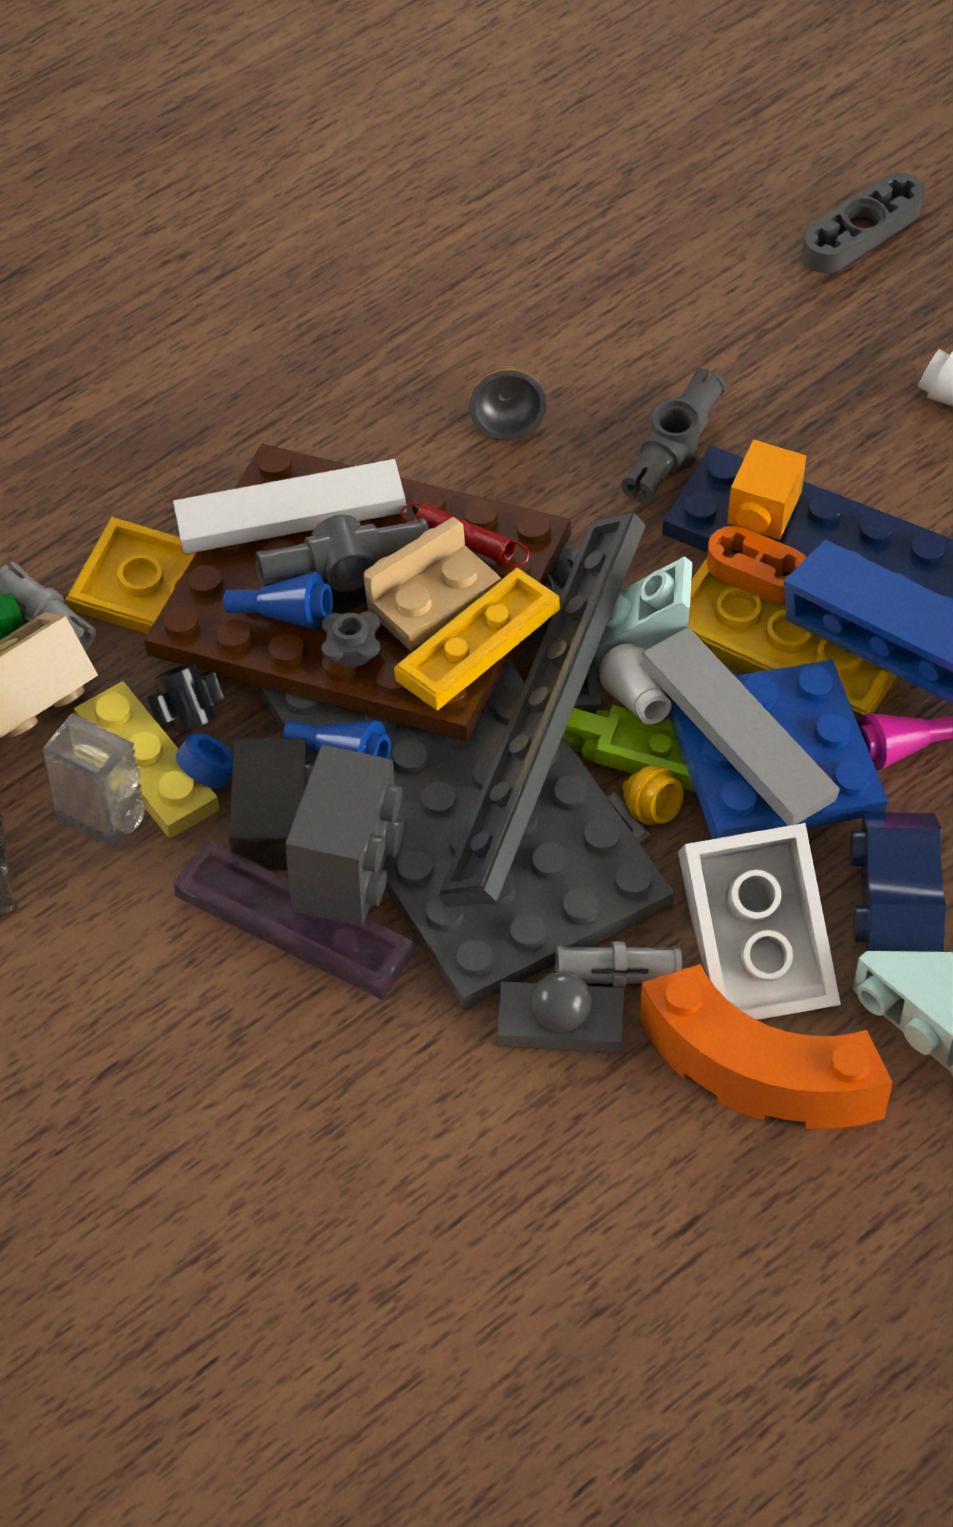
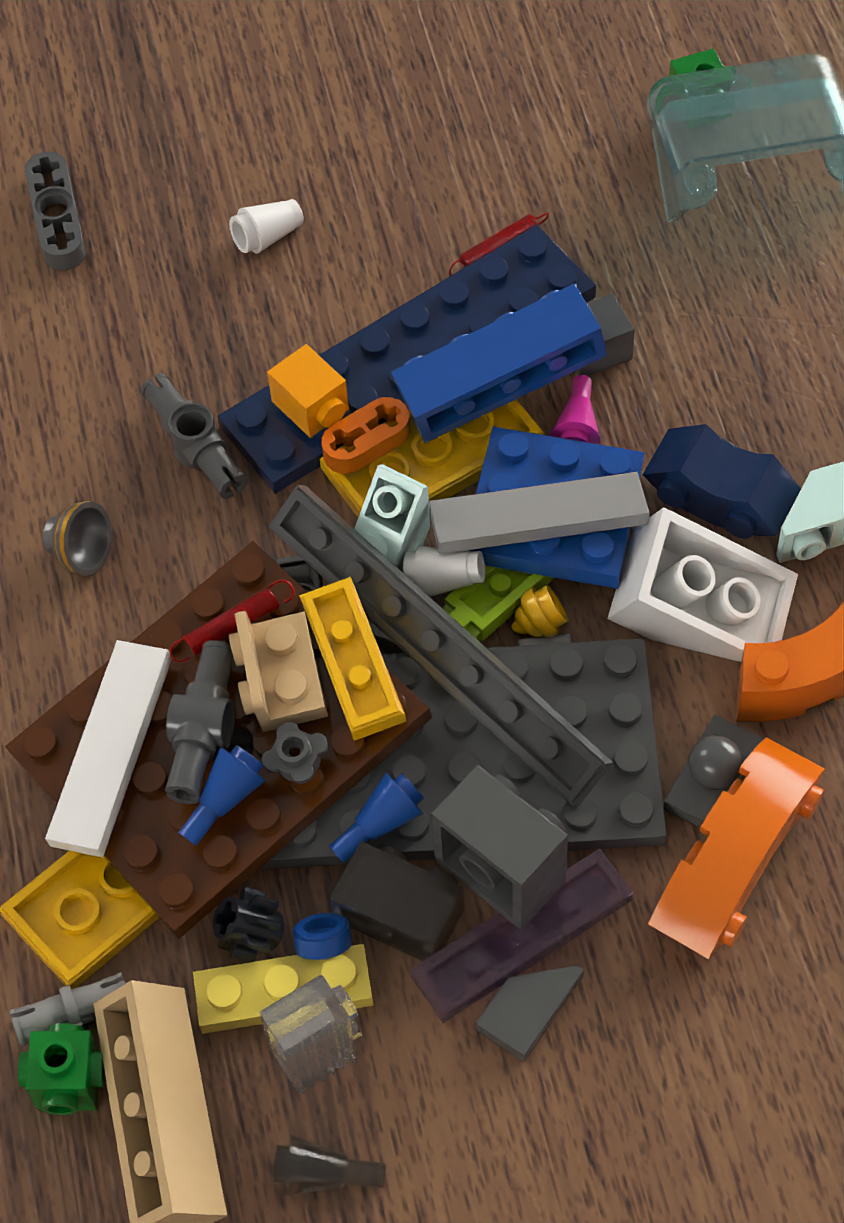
camera: 60 degrees left, 5 degrees up
(224, 957) = (527, 1008): none -> dark grey tile
(479, 1048) = (743, 834): none -> orange brick
(618, 963) = (690, 709): light grey pin -> none

